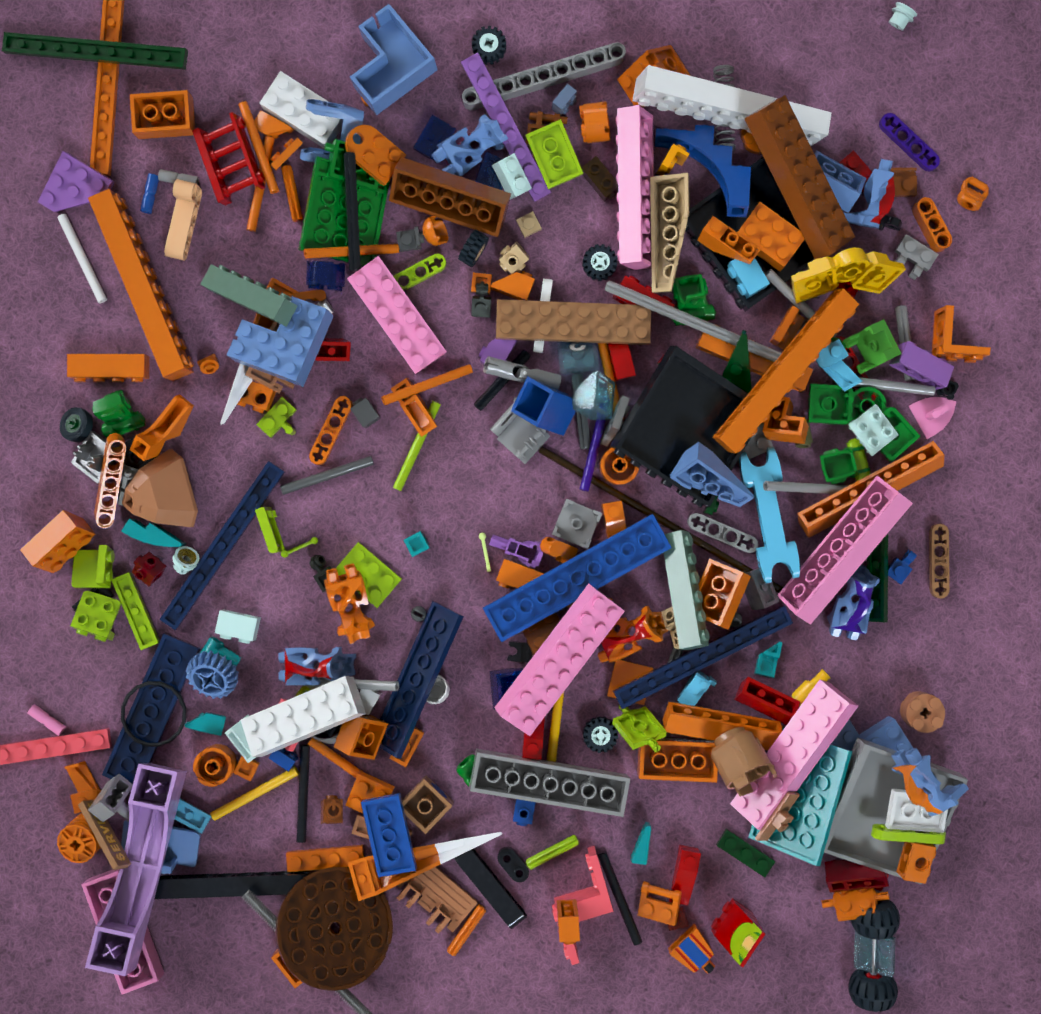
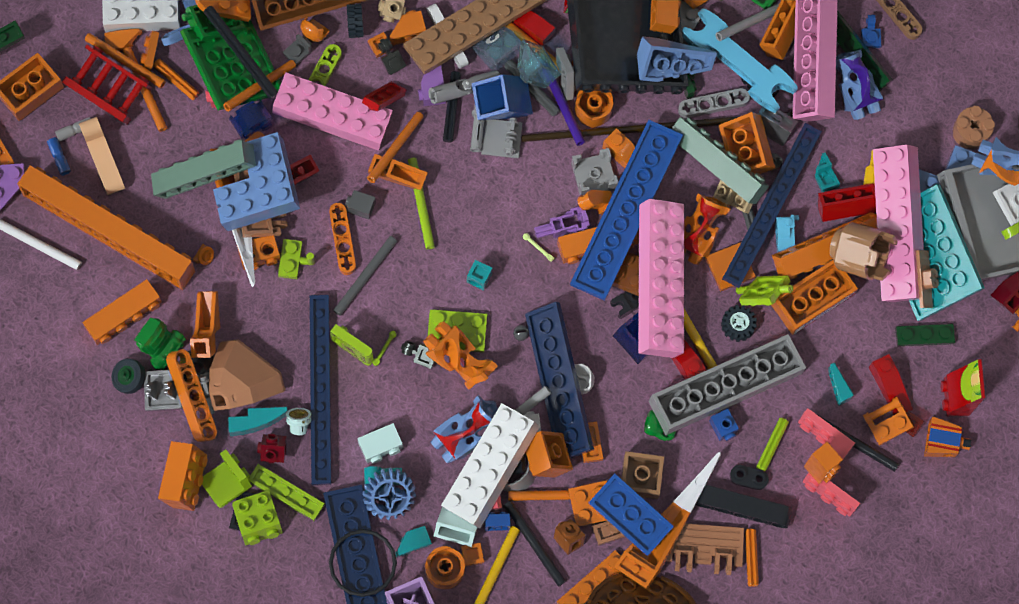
camera: 40 degrees left, 15 degrees down
(448, 334) = (384, 96): none -> red plate

